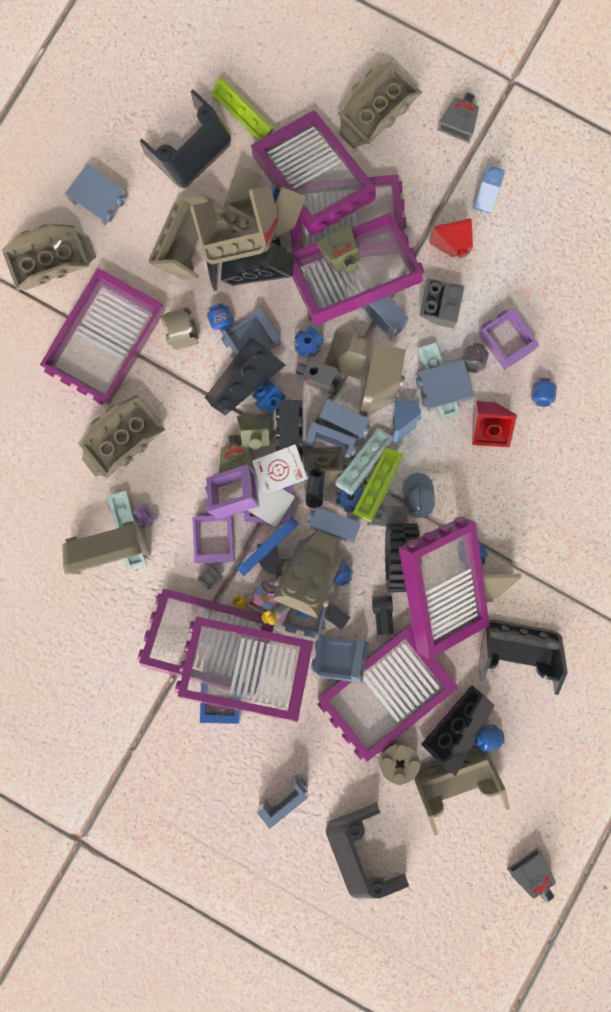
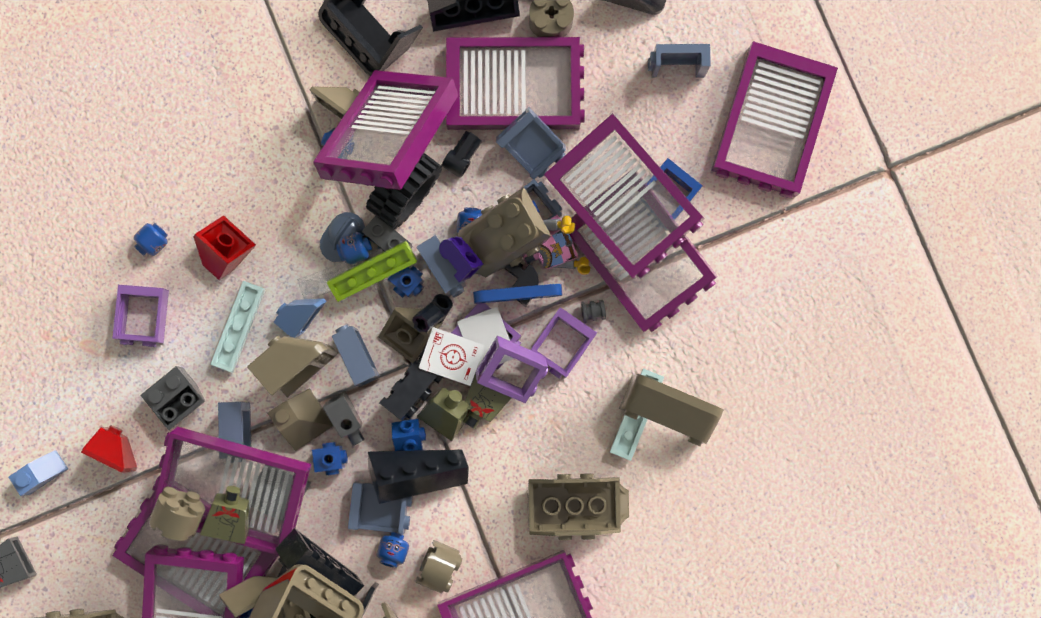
camera: 145 degrees left, 0 degrees up
(145, 515) = (609, 414): medium lavender bush -> none
(185, 811) = (774, 120): none -> window
(324, 538) = (461, 257): none -> dark purple leg
(333, 437) = (368, 331): sand blue panel -> none
(337, 617) = (505, 181): black piece -> none
(364, 461) = (367, 303): light aqua plate -> none
(374, 224) = (177, 514): none -> dark tan brick
(403, 491) = (354, 248): none -> blue head
(444, 385) = (235, 317): sand blue panel -> none
(475, 357) = (186, 321): head -> none

